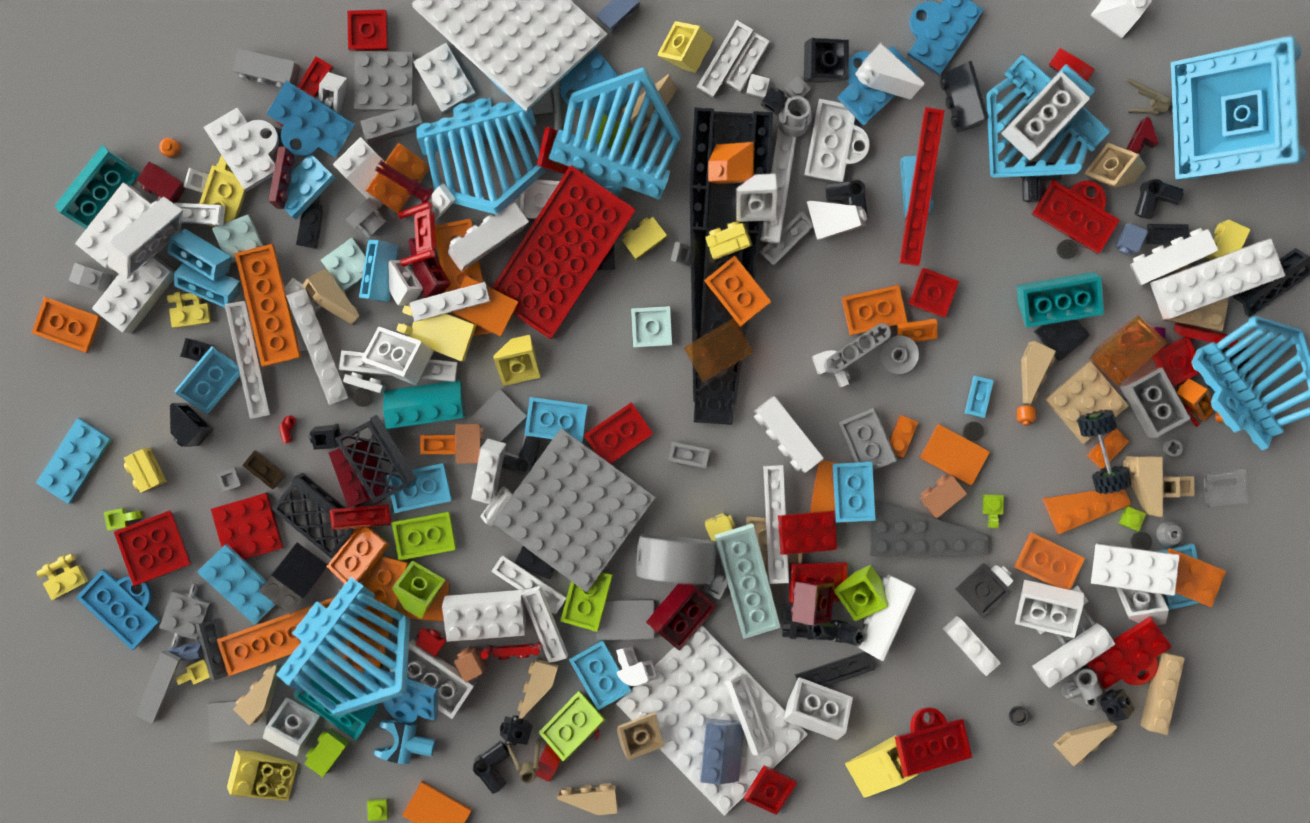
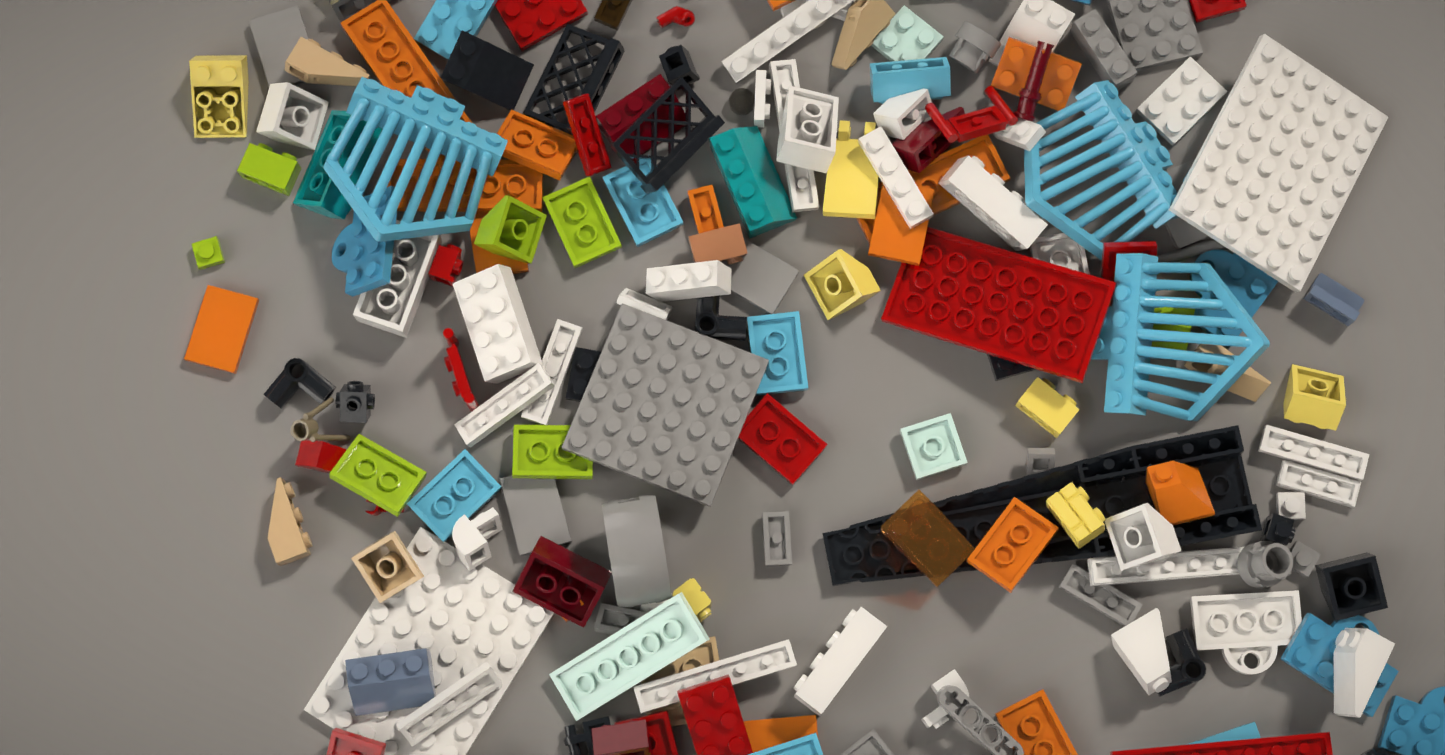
camera: 75 degrees right, 10 degrees down
(404, 742) = (305, 265): medium azure connector -> none
(470, 663) = (430, 320): nougat brick -> none
(541, 681) = (428, 419): tan slope -> none

